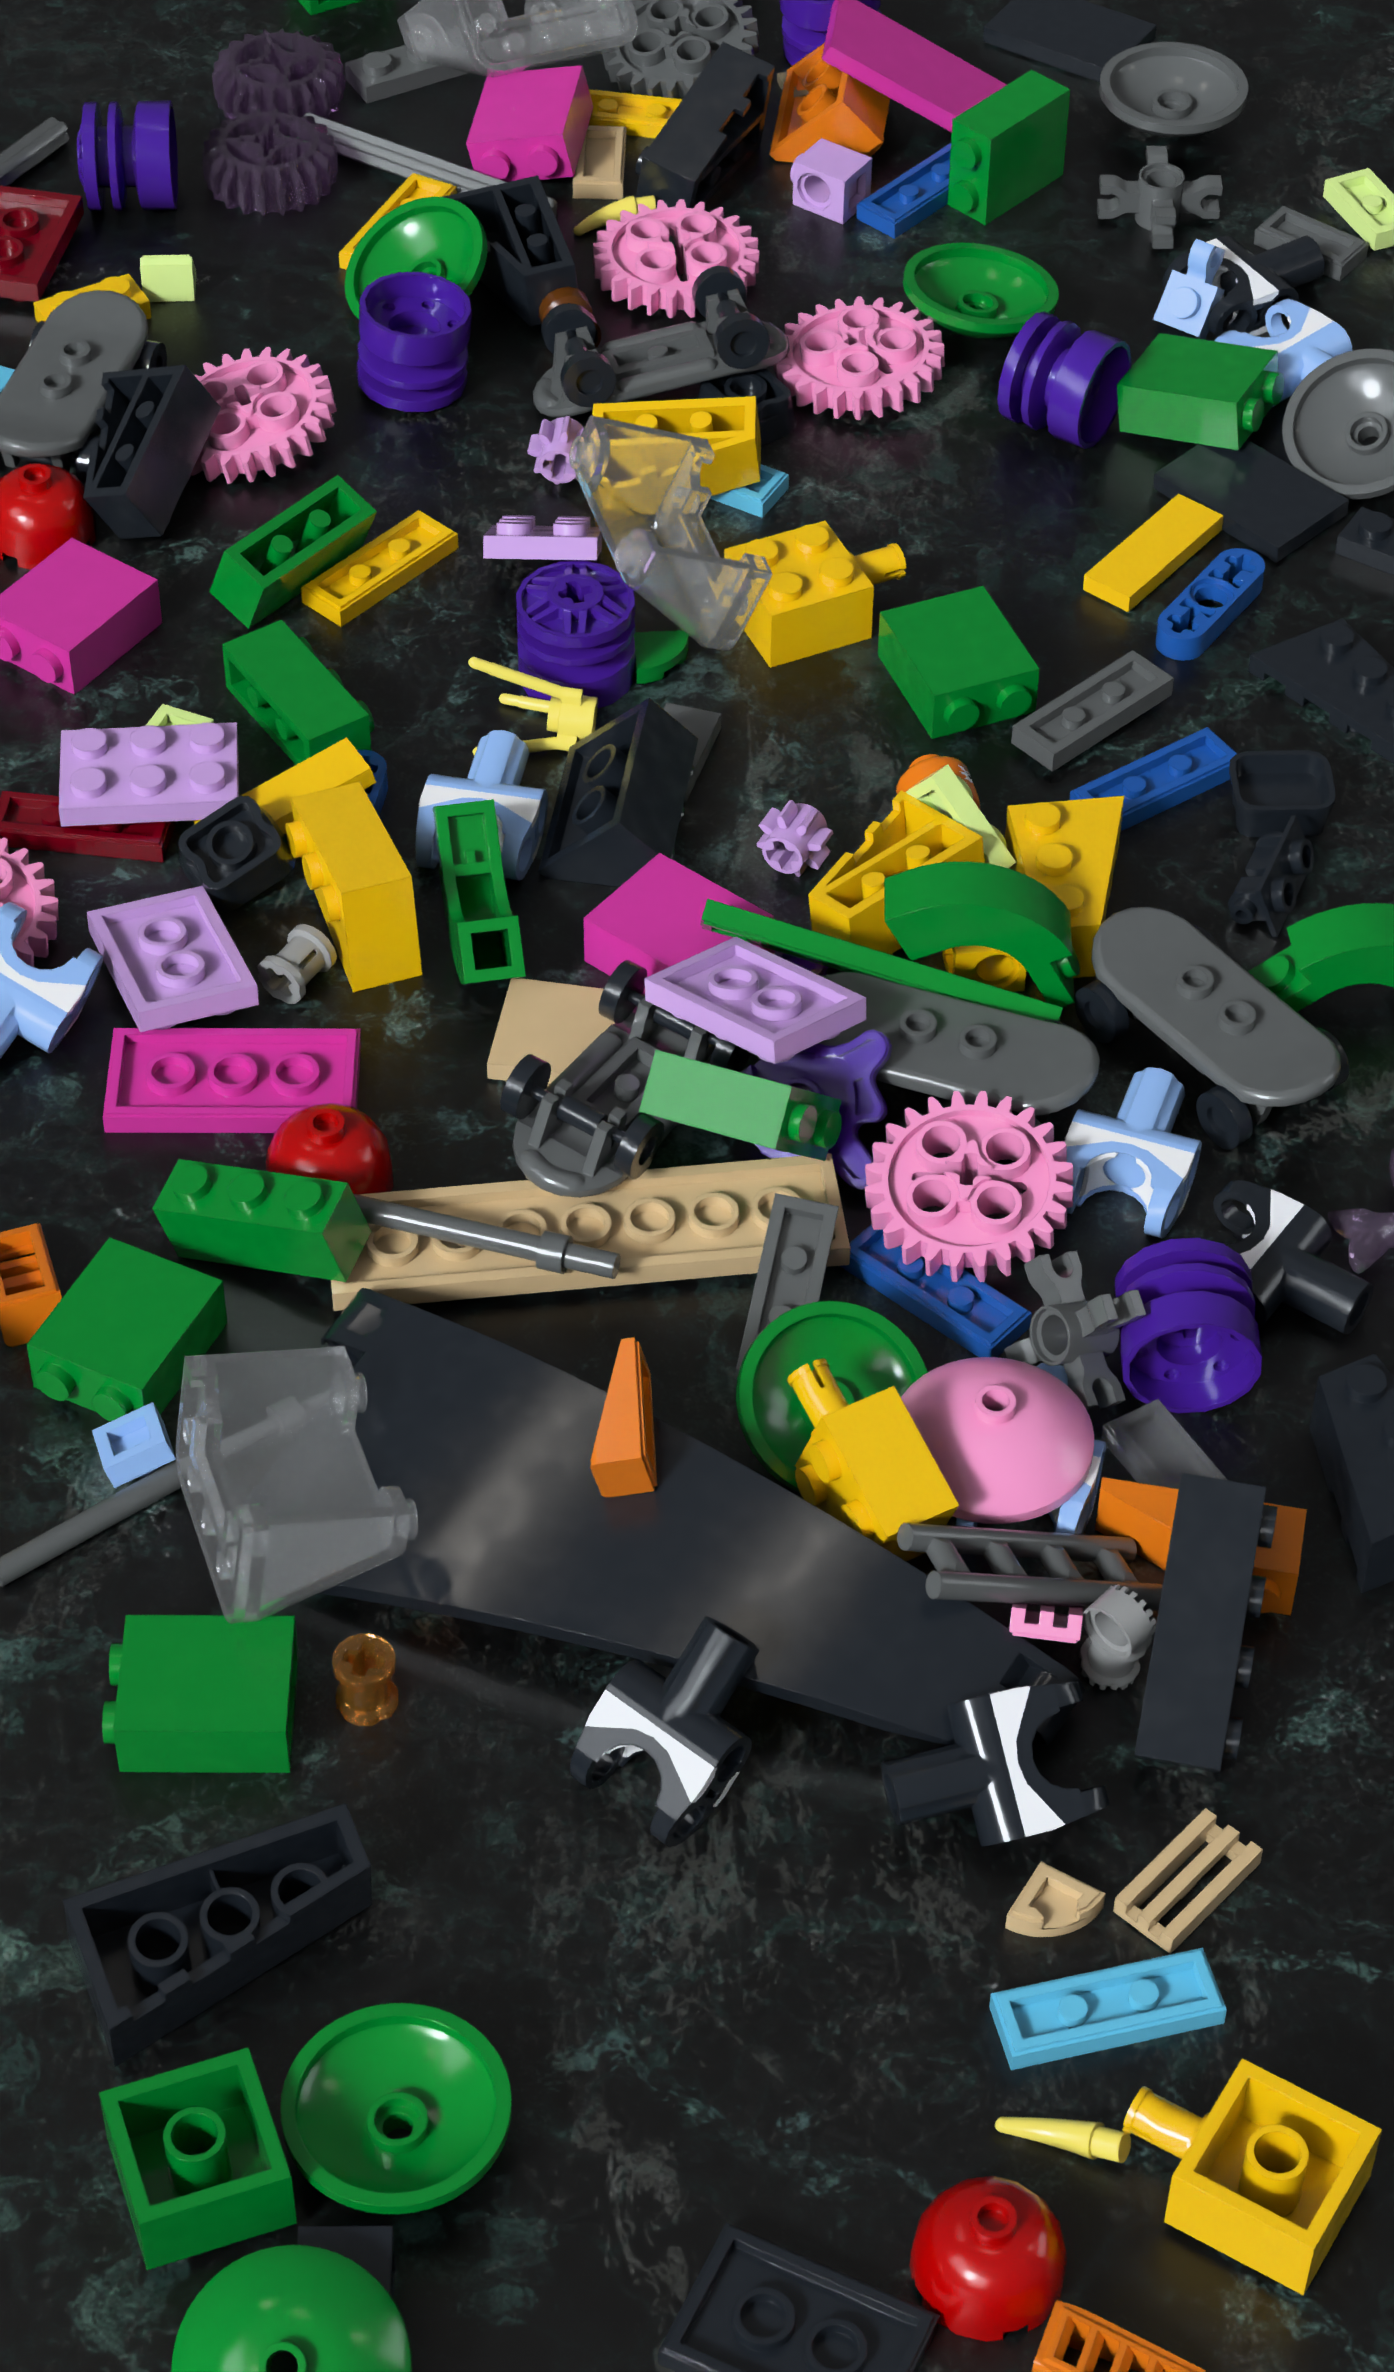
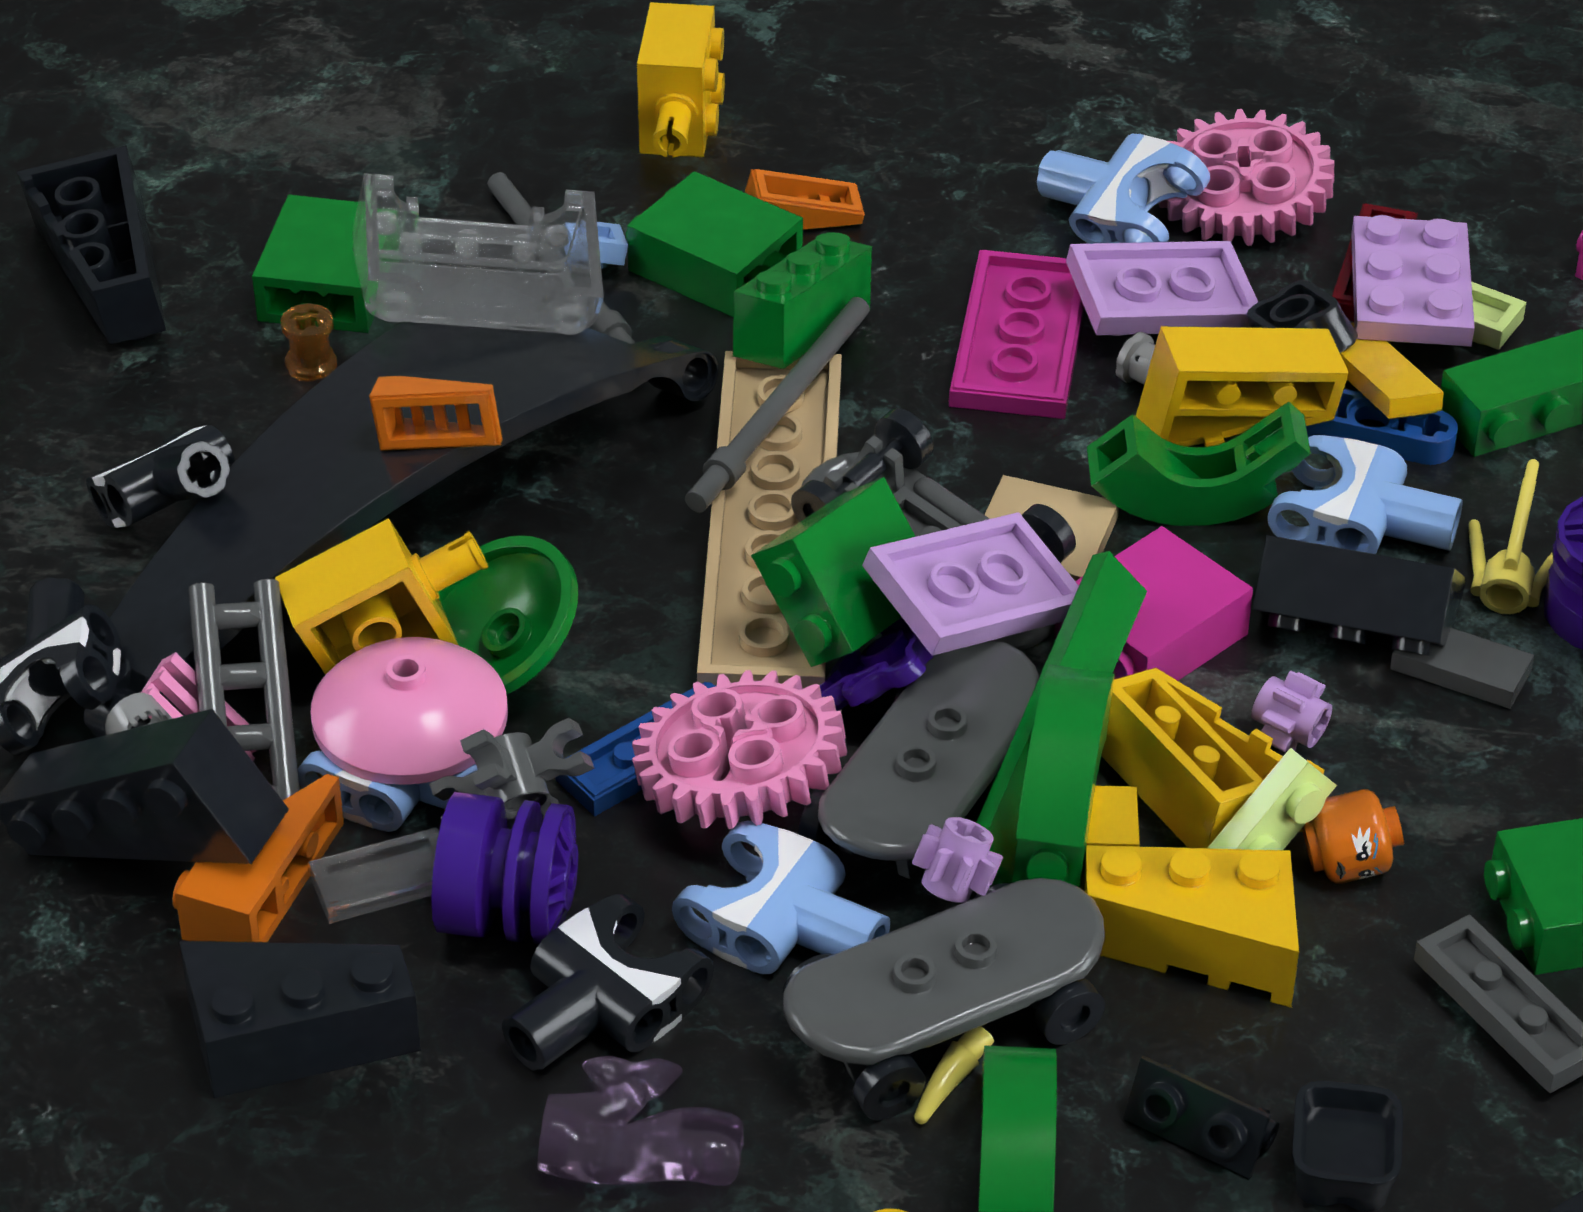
camera: 100 degrees right, 5 degrees down
(333, 1145) = (891, 365): red cylinder -> none
(790, 1262) = (654, 615): dark grey plate -> none
(1098, 999) = (957, 859): none -> lavender gear
(1164, 777) = (1392, 1050): blue tile -> none

